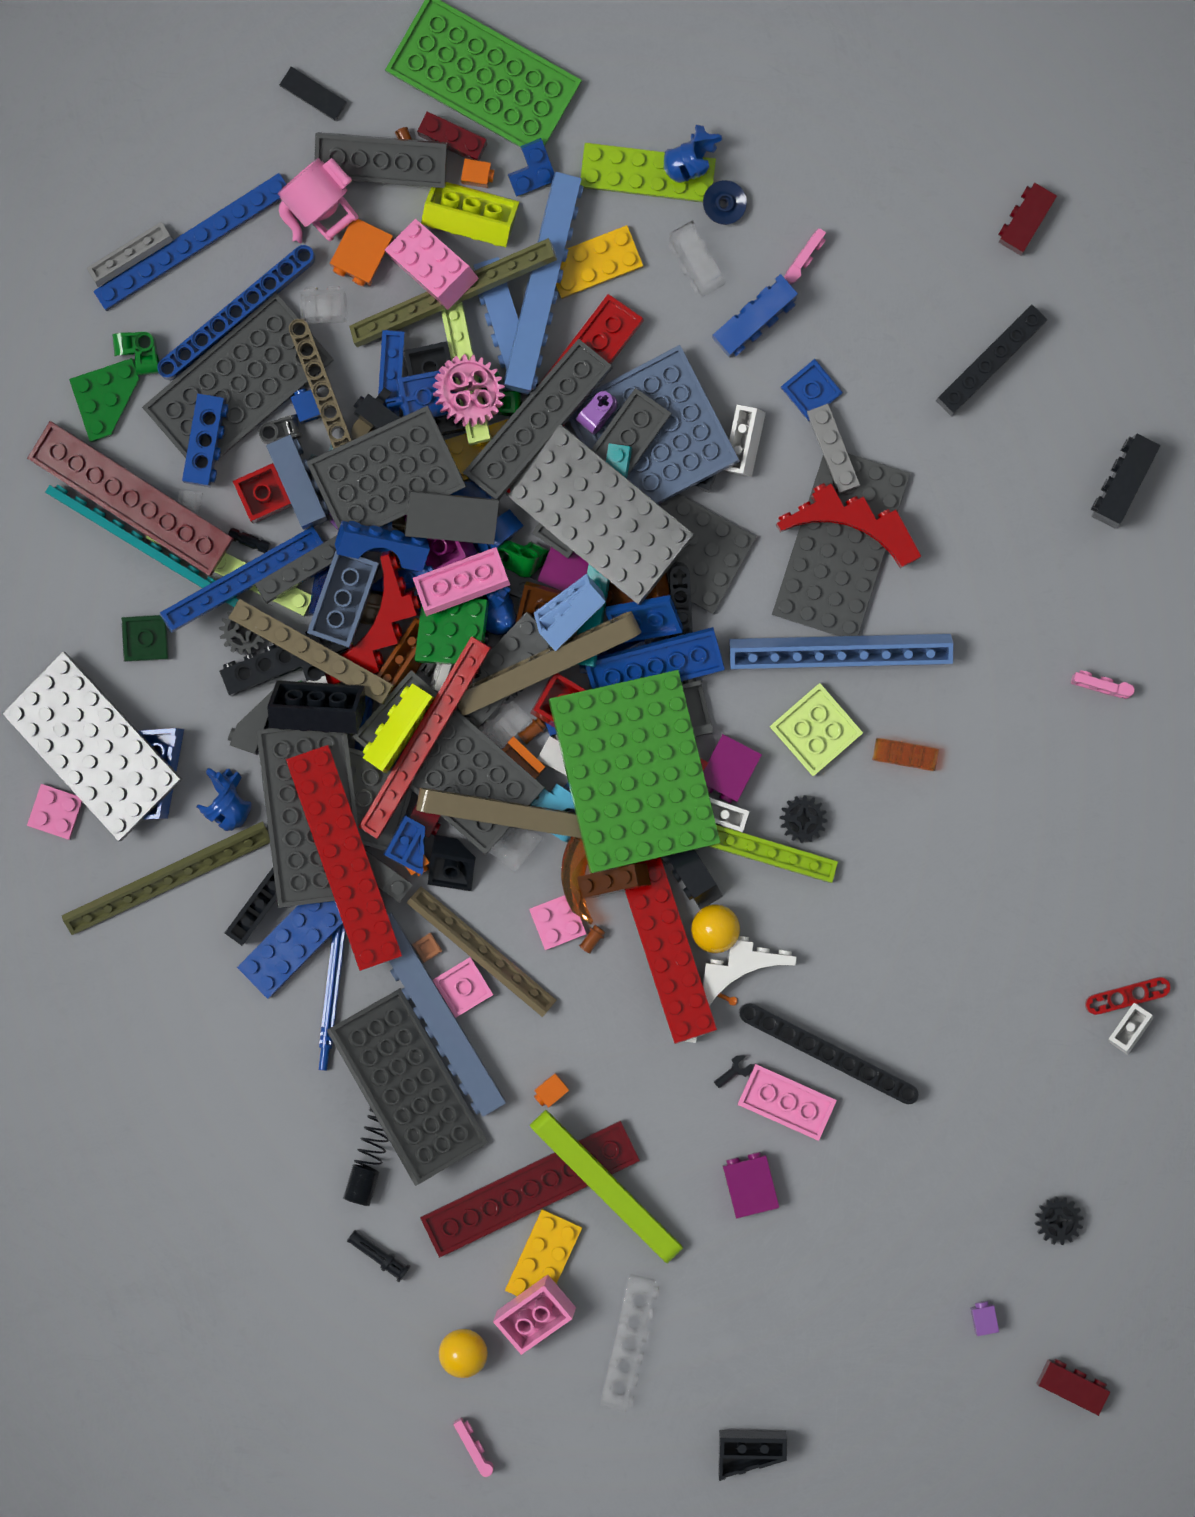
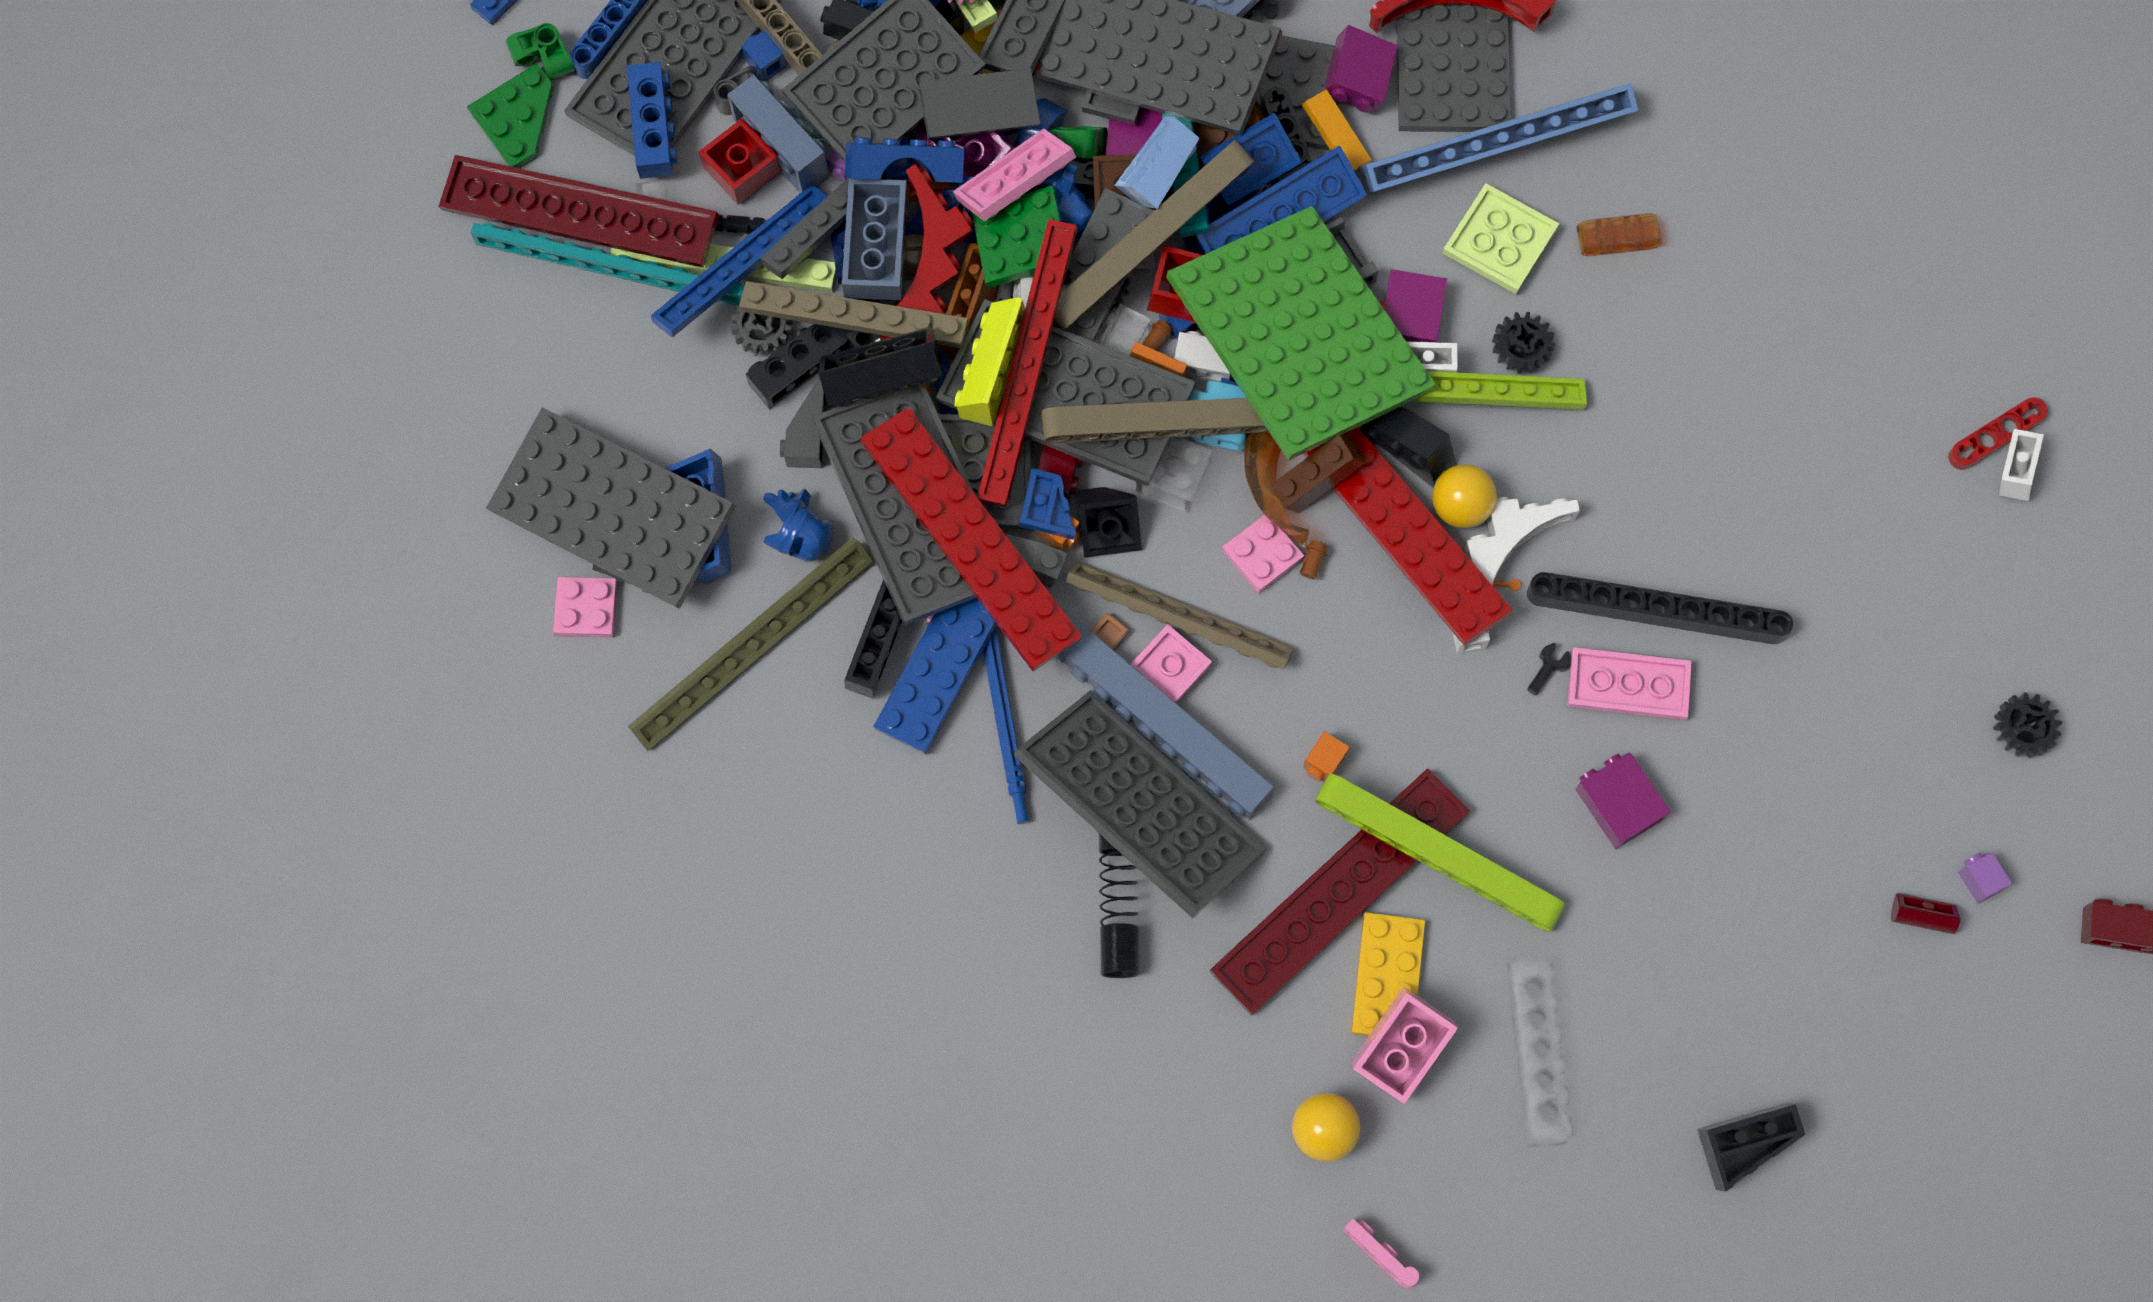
camera: 20 degrees left, 15 degrees down
(144, 638) = (641, 369): dark green plate -> none
(386, 1265) = (1185, 1041): black pin -> none
(721, 607) = (1335, 128): none -> light orange tile
(755, 562) = (1360, 69): none -> magenta brick
(933, 1331) = (1925, 913): none -> dark red brick
(1103, 685) = (1821, 92): bright pink hinge -> none

